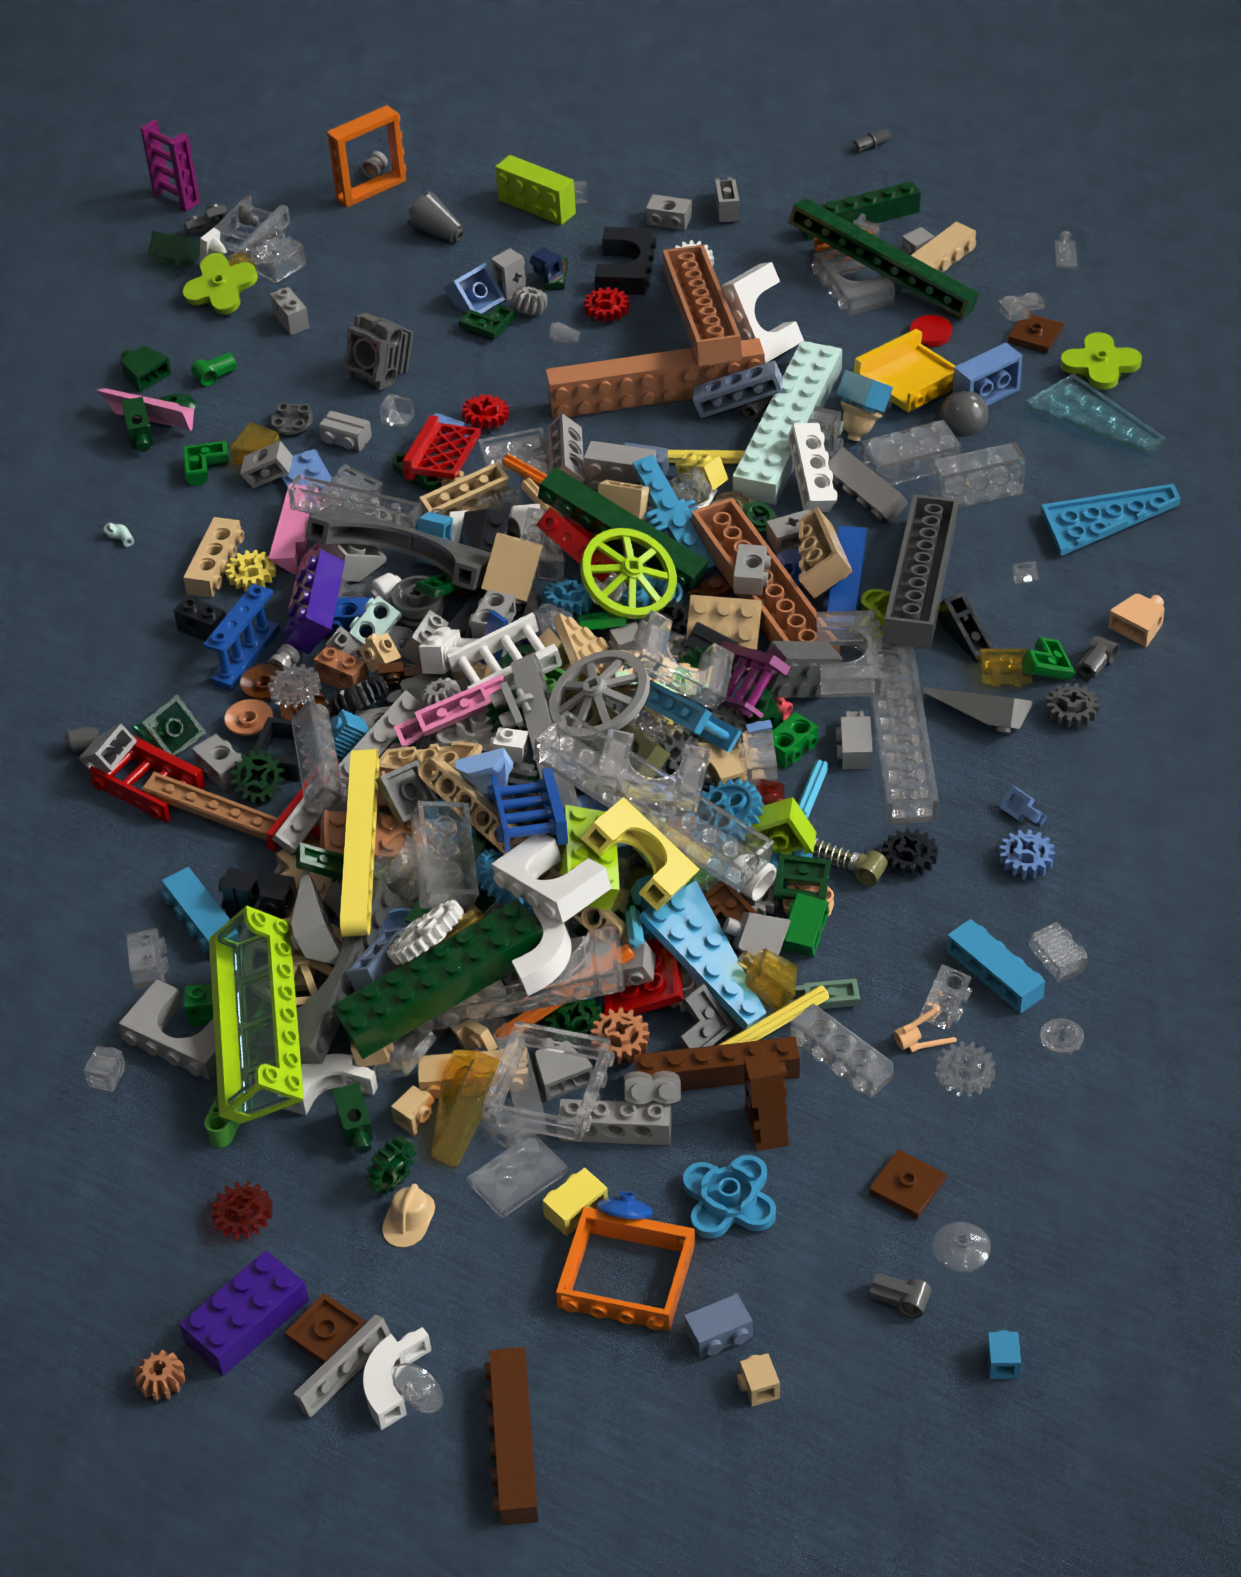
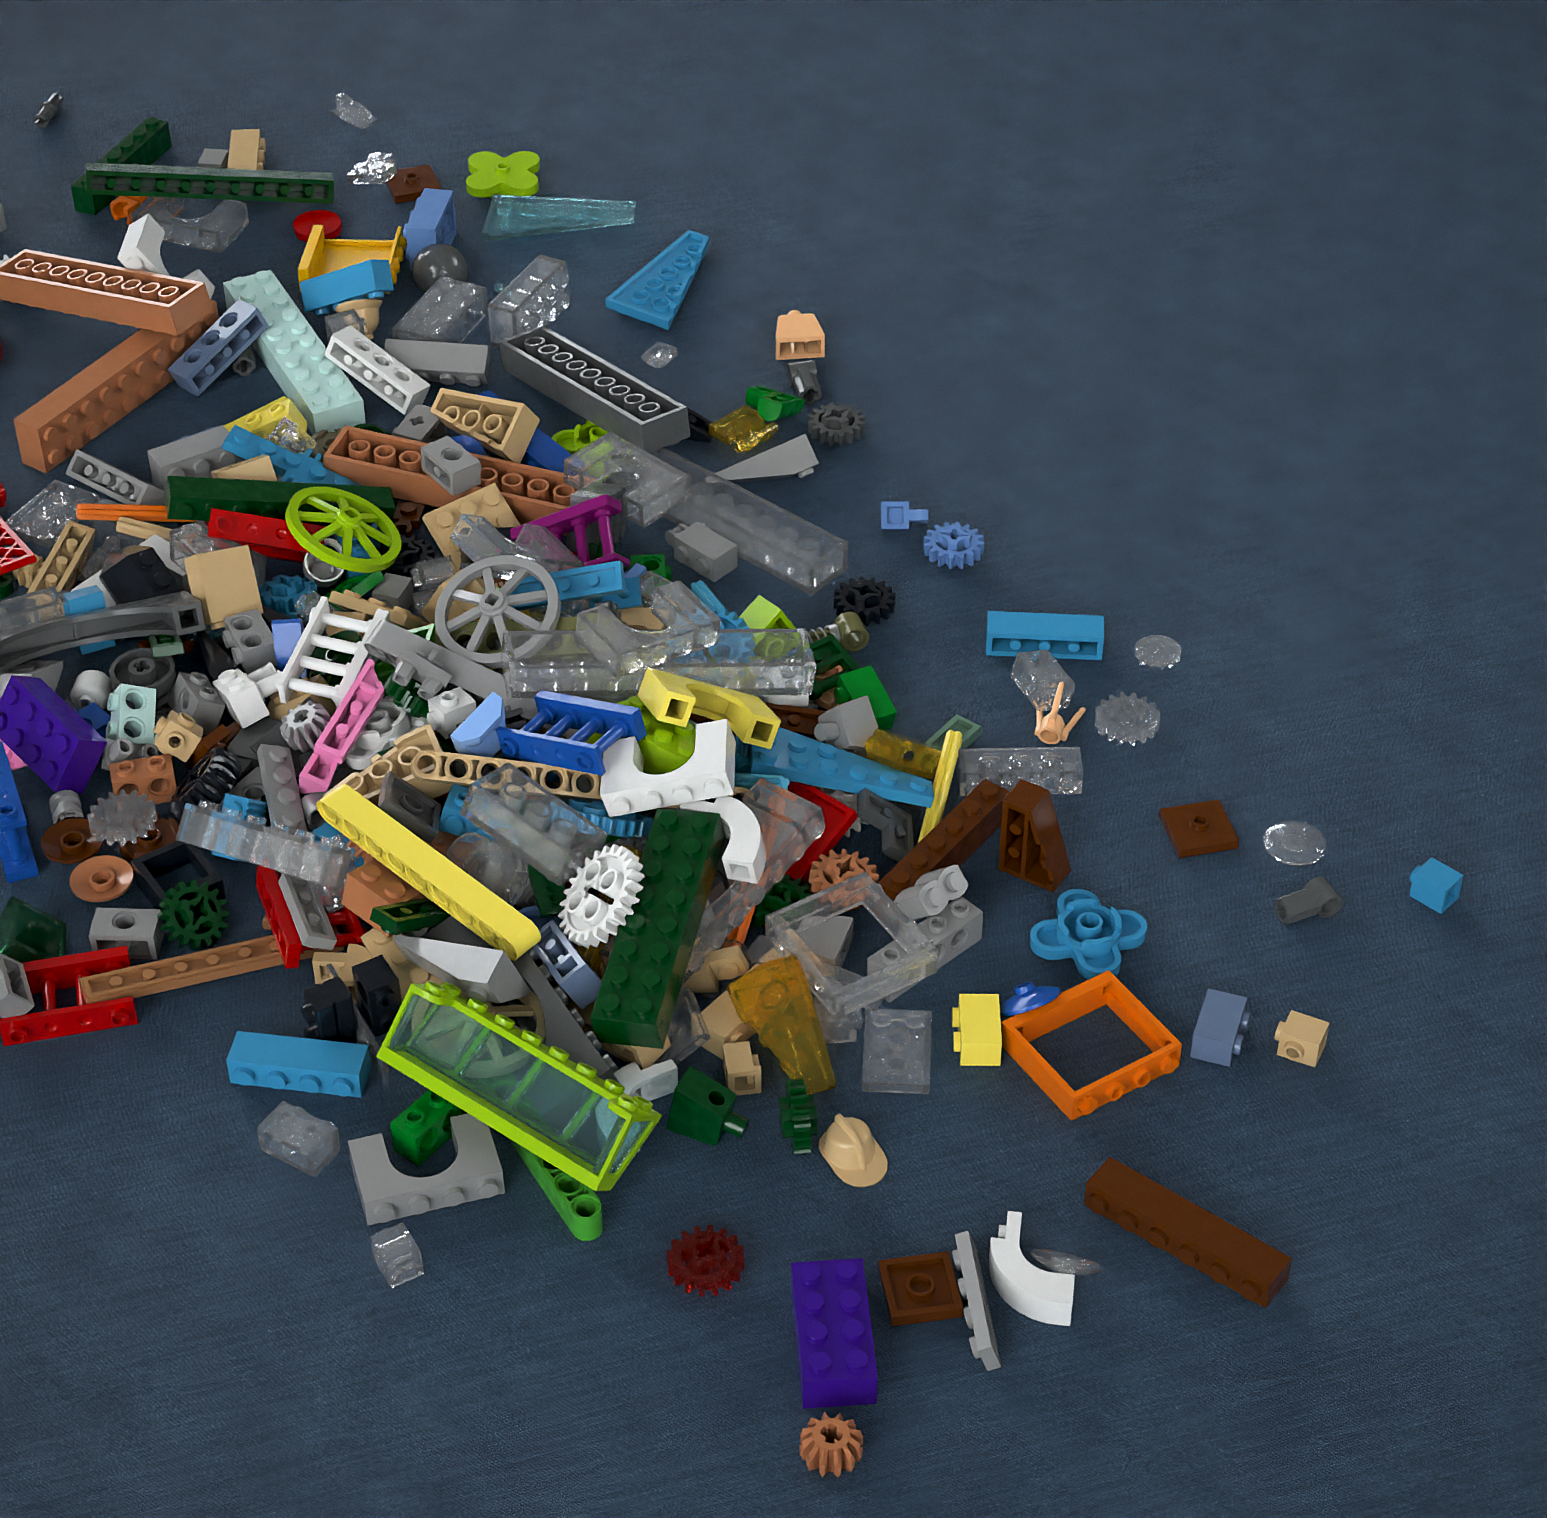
camera: 50 degrees left, 5 degrees down
(1058, 952) = (1074, 594): clear brick -> none

